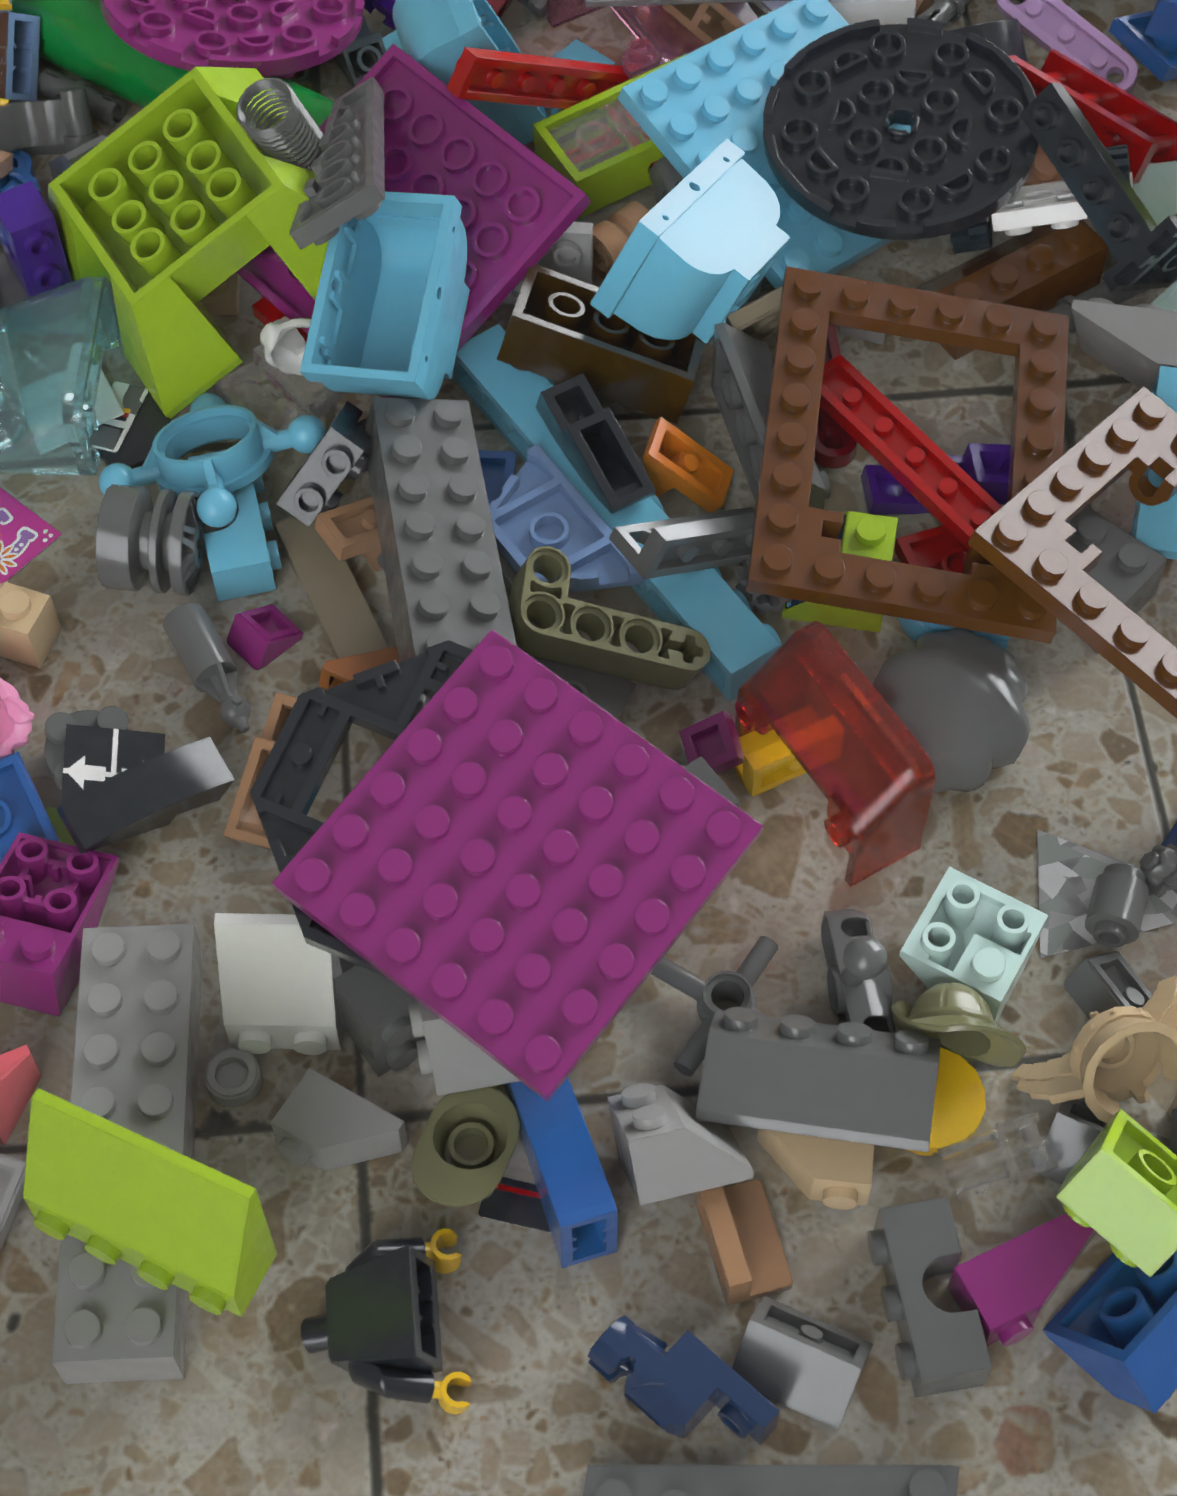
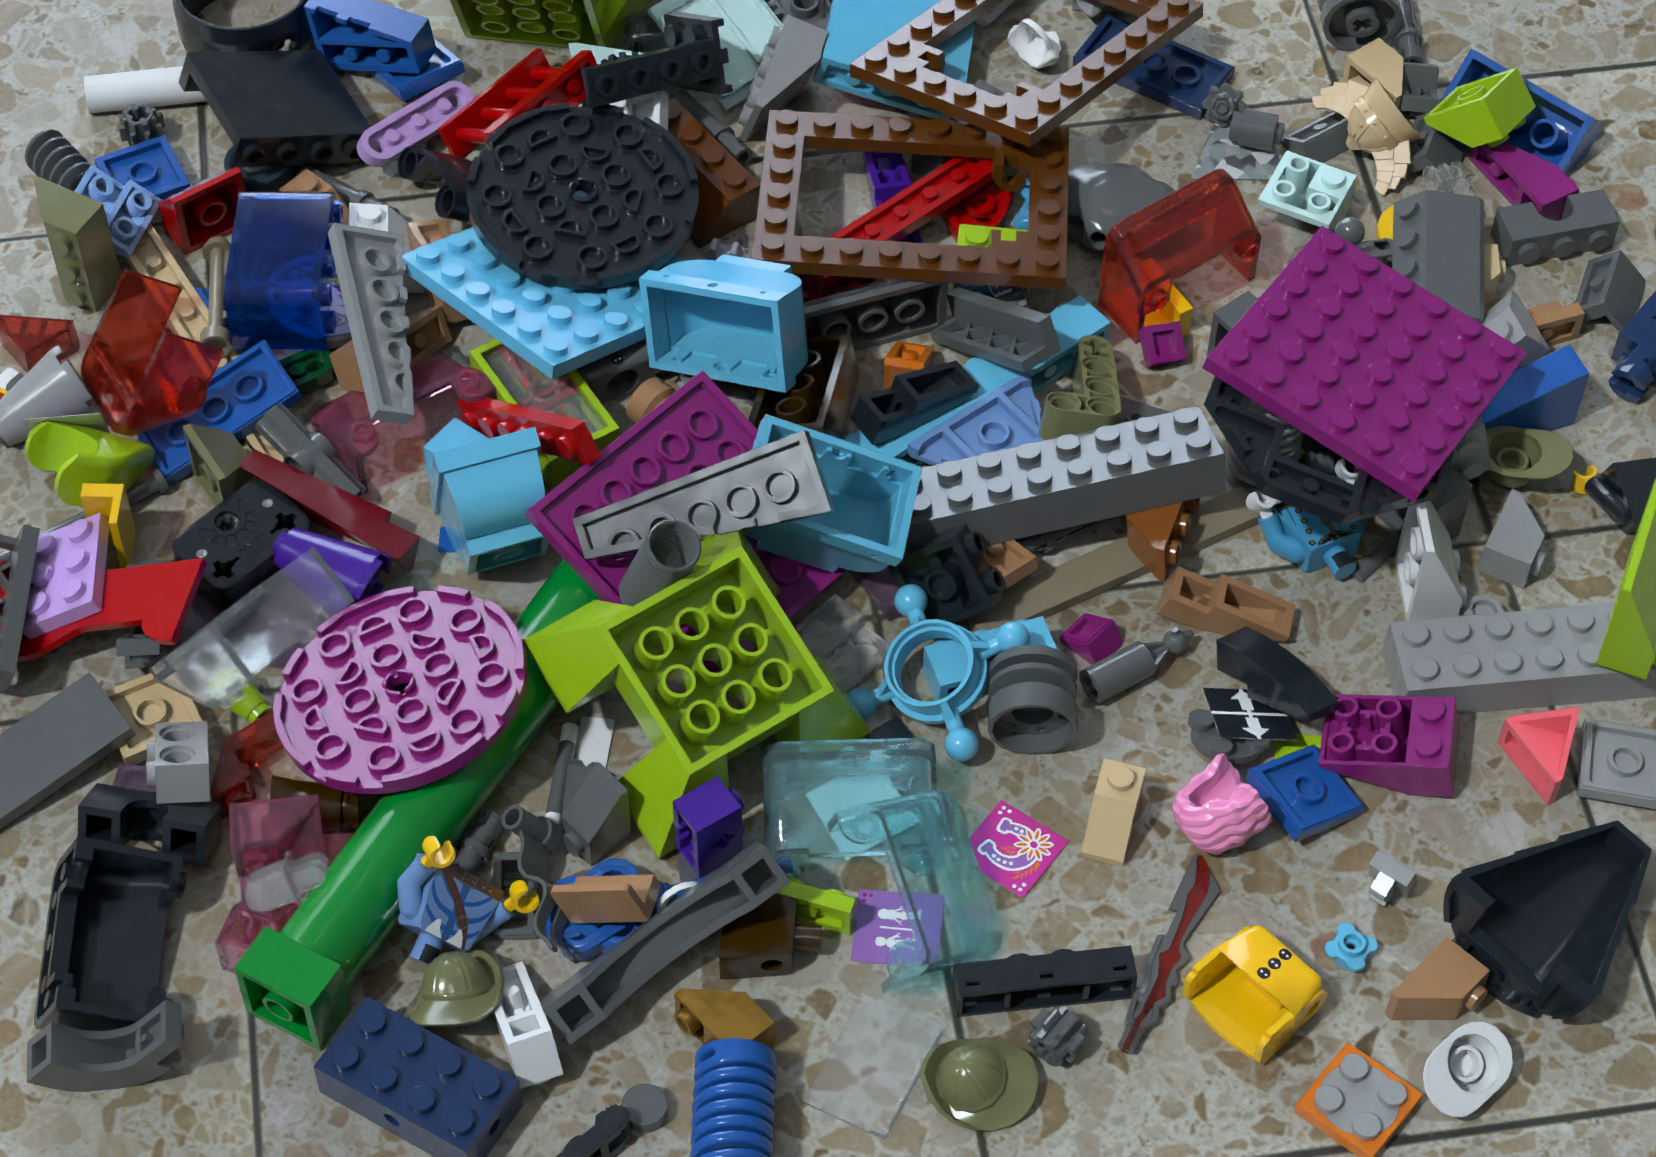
camera: 95 degrees left, 5 degrees down
(284, 344) = (821, 616): white piece -> none
(962, 1023) = (1377, 198): olive hat -> none

